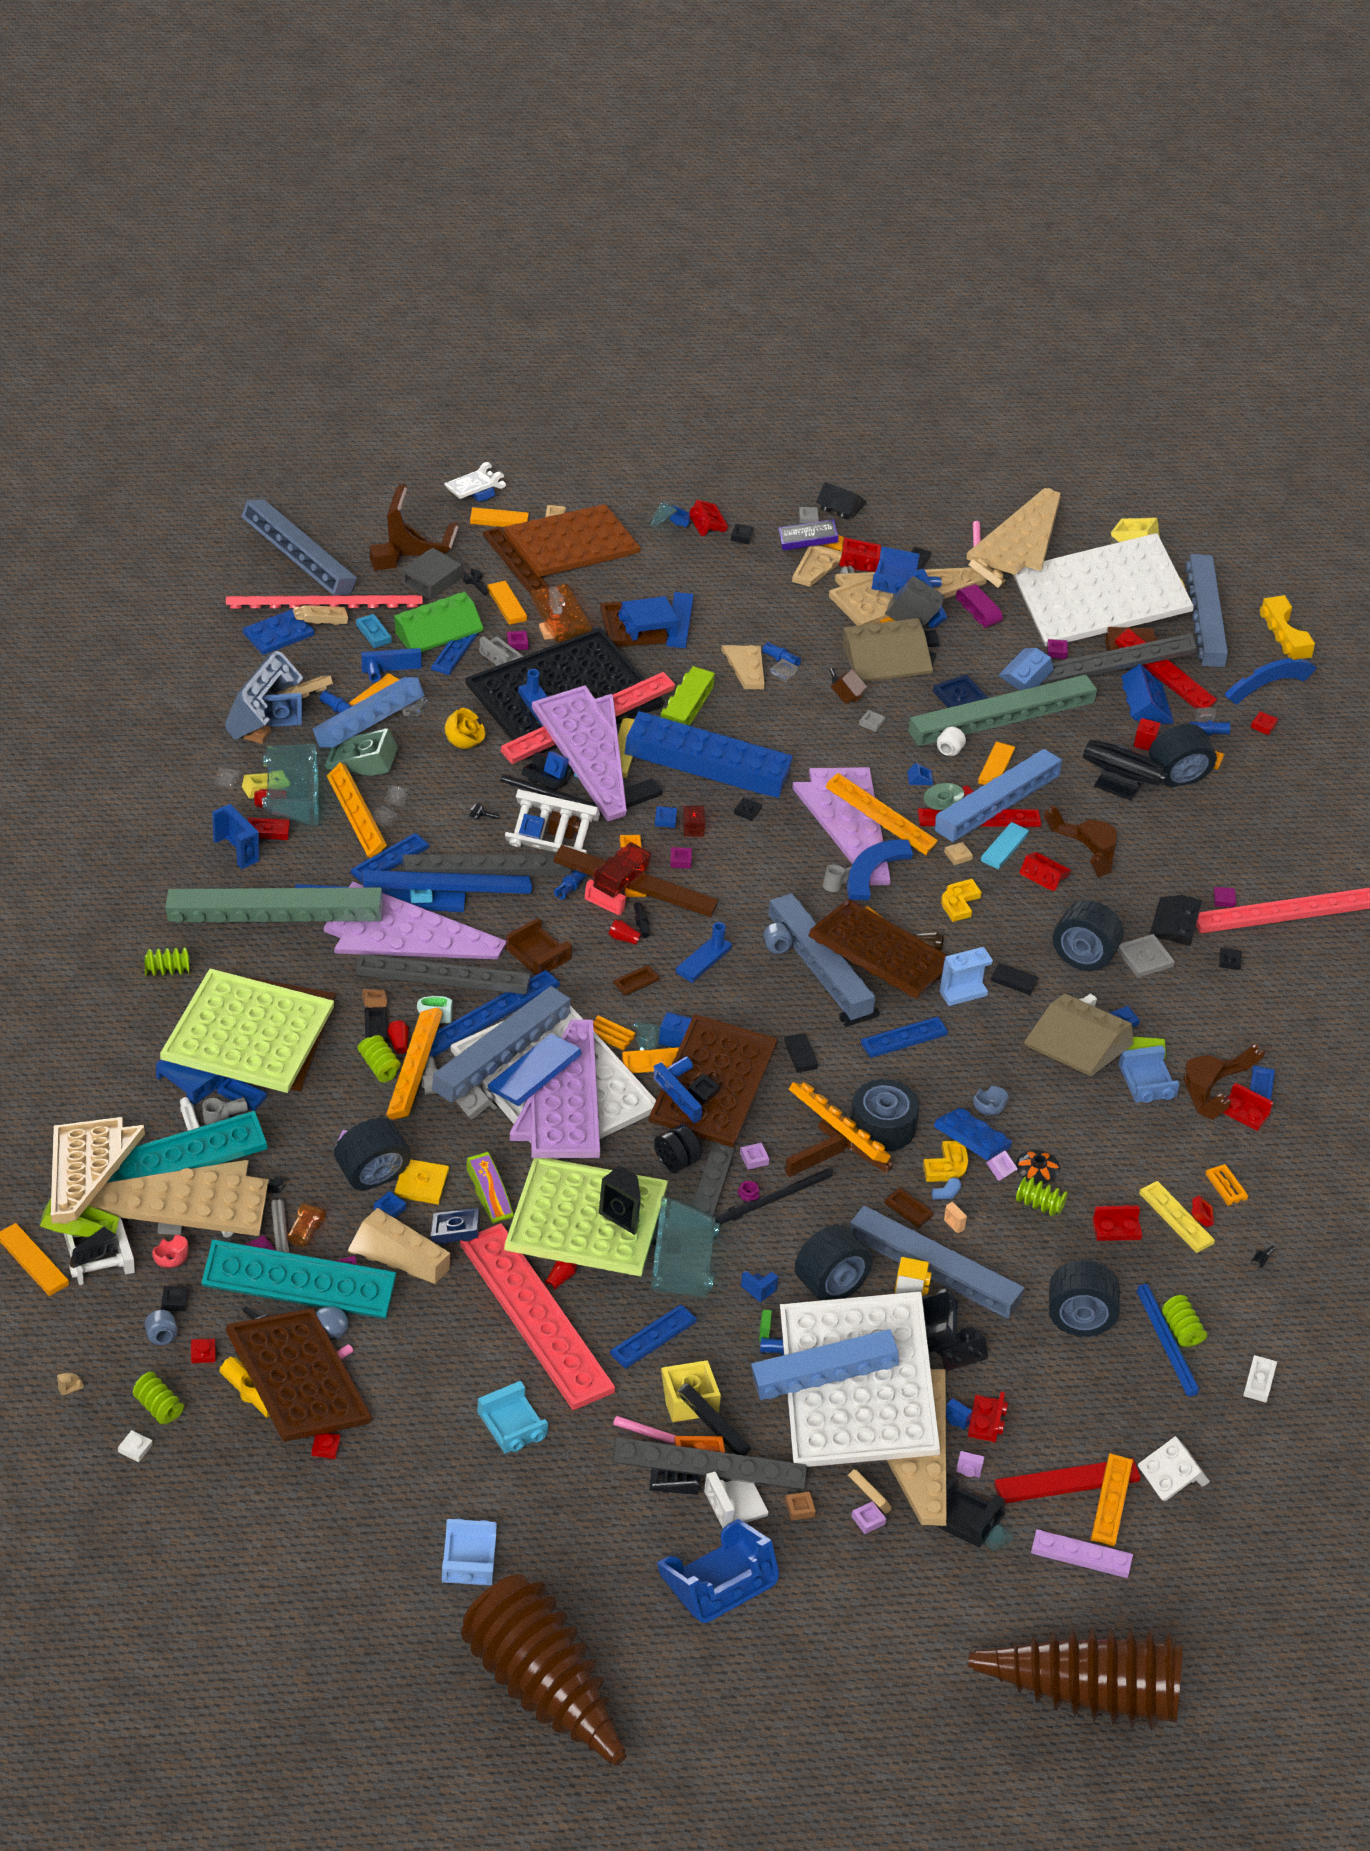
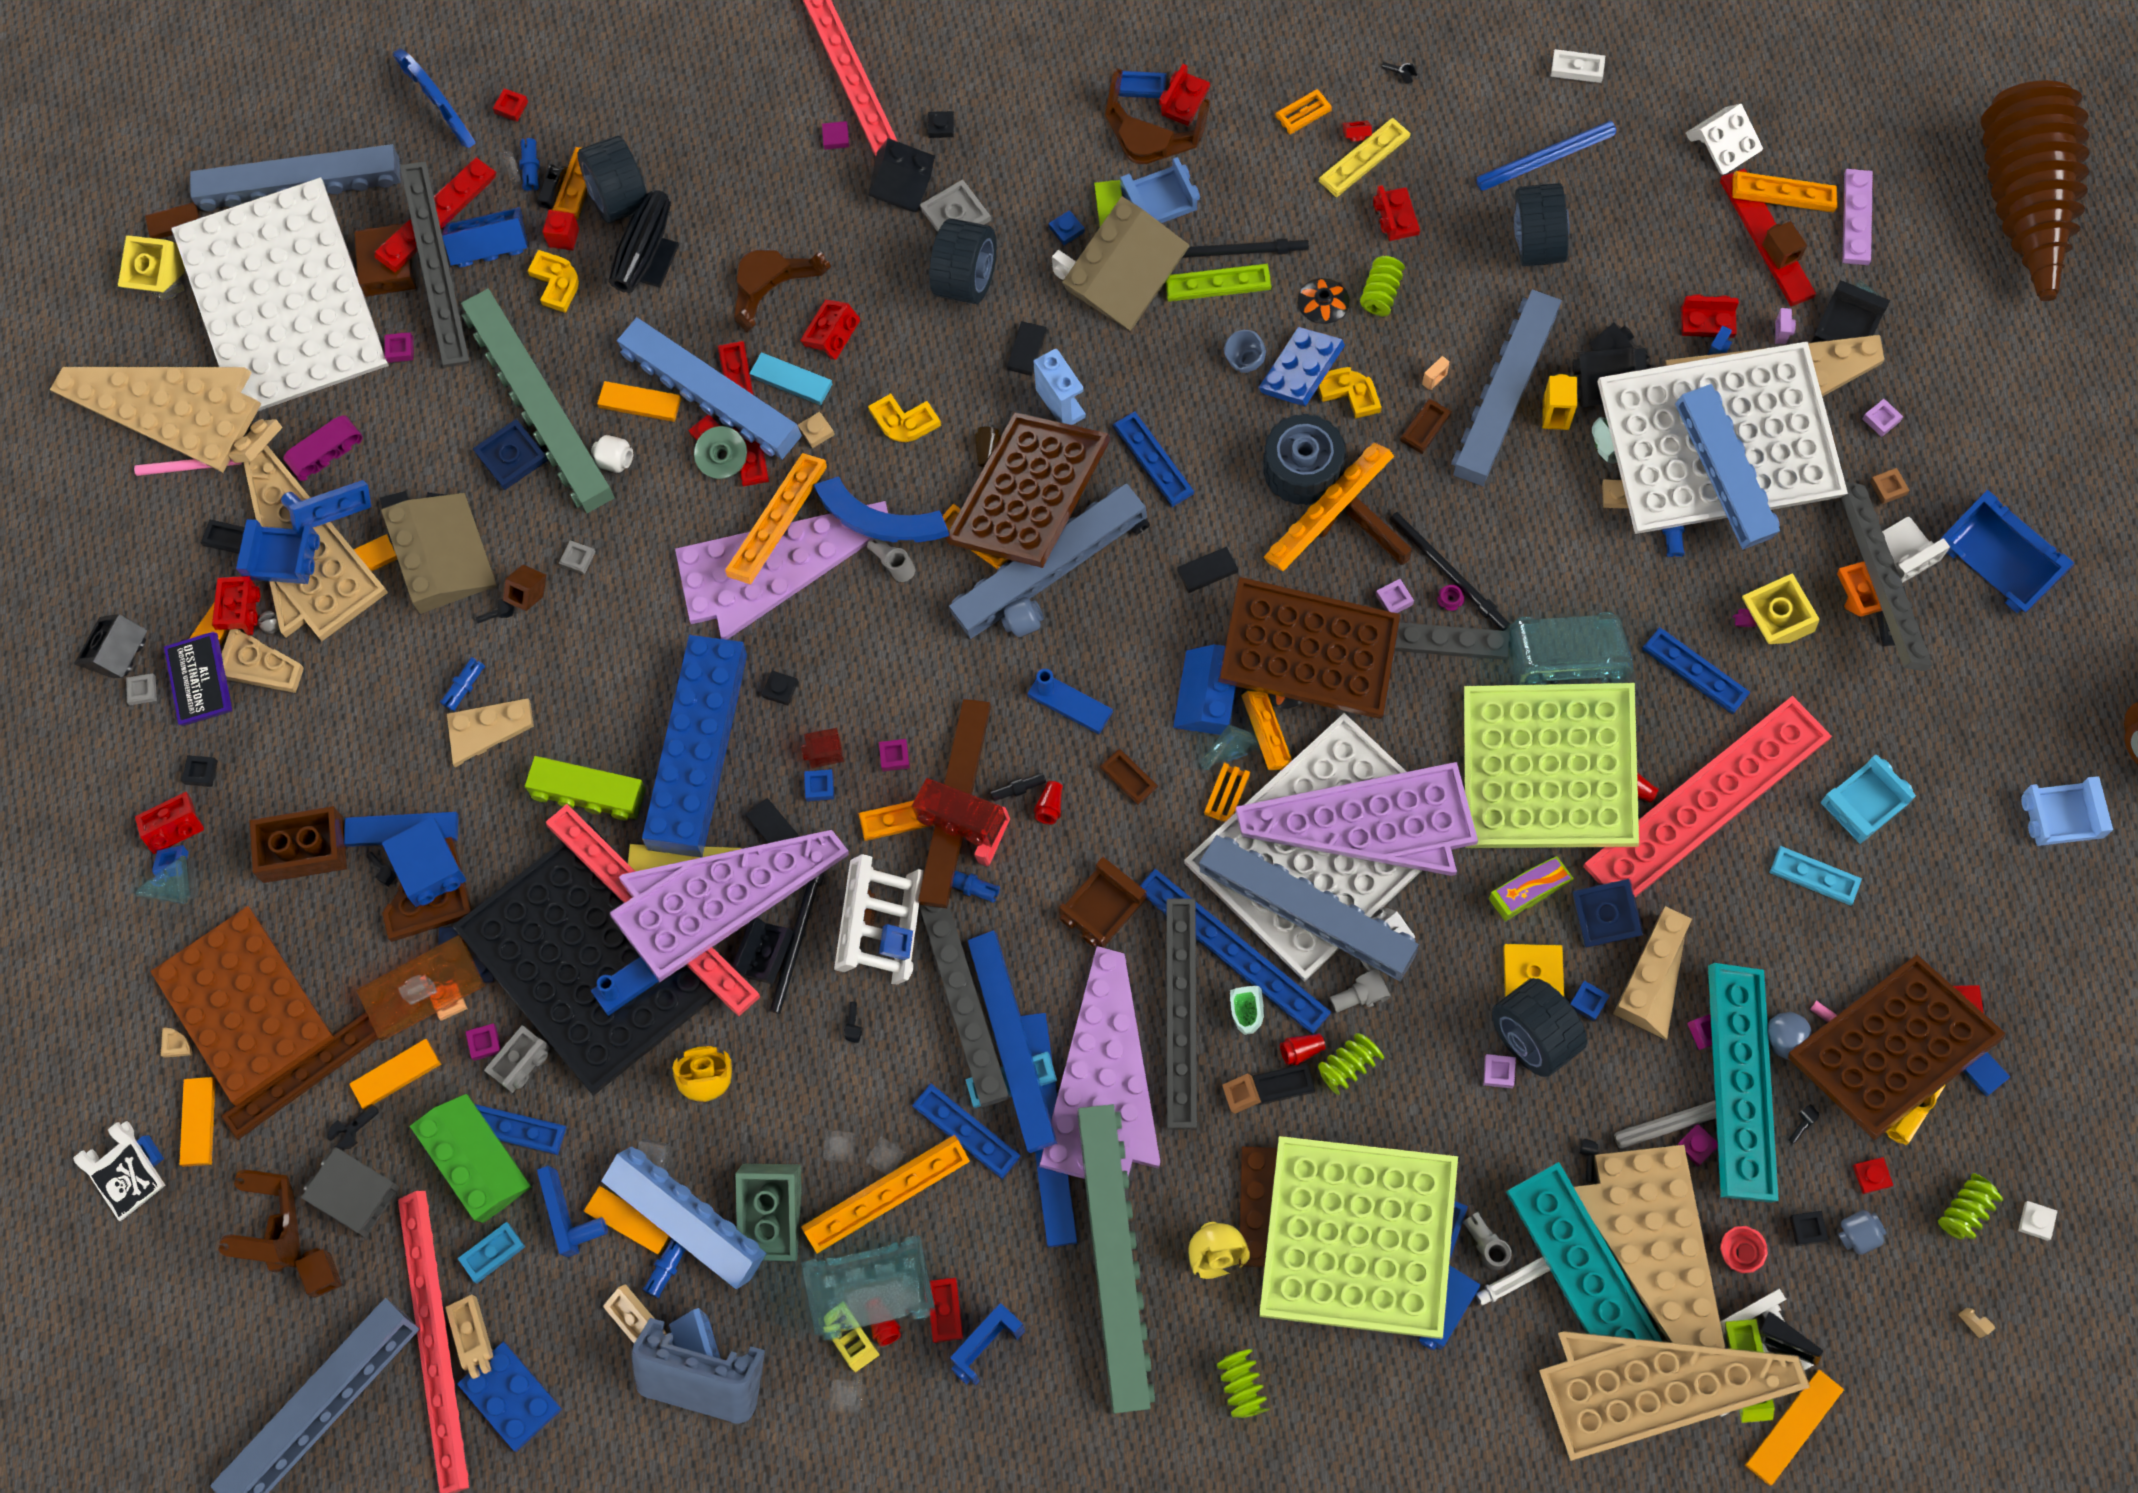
camera: 90 degrees left, 25 degrees up
(265, 958) = (1216, 1248): none -> light yellow cylinder
(266, 1442) = (1986, 1074): none -> blue tile
(306, 1222) = (1640, 1094): clear orange piece -> none
(414, 1063) = (1352, 1015): light orange plate -> none
(456, 1373) = (1815, 875): none -> medium azure tile
(534, 1069) = (1343, 859): tile -> none
(556, 764) = (758, 935): blue plate -> none
(621, 1199) = (1546, 713): black slope -> none
(644, 1430) = (1834, 642): bright pink bar -> none
(667, 1080) = (1334, 696): blue piece -> none
(676, 567) = (298, 844): none -> reddish brown brick
(677, 1148) = (1418, 678): black wheel -> none
(704, 1088) = (1340, 651): black plate -> none
(713, 1419) = (1825, 578): black beam -> none
(758, 1286) = (1591, 565): blue panel -> none
(765, 1324) = (1654, 551): bright green tile -> none
(784, 670) = (494, 676): clear plate -> none
(833, 1263) = (1565, 480): black wheel -> none
(870, 1491) = (1853, 417): tan tile -> none
(915, 601) = (358, 514): dark grey brick -> none
(919, 775) = (676, 489): blue slope -> none
(949, 1191) = (1391, 386): medium blue arm -> none
(1001, 1165) = (1344, 331): lavender plate -> none
(1028, 669) = (456, 376): medium blue slope -> none
(1050, 1476) = (1784, 244): none -> reddish brown brick
(1062, 1102) = (1218, 282): none -> lime tile
(1092, 1144) = (1282, 246): none -> black bar
(1111, 733) = (561, 278): none -> yellow plate
(1177, 552) = (162, 222): none -> reddish brown tile
(1183, 1321) = (1526, 135): lime piece -> none
(1294, 642) = (347, 77): yellow arch -> none

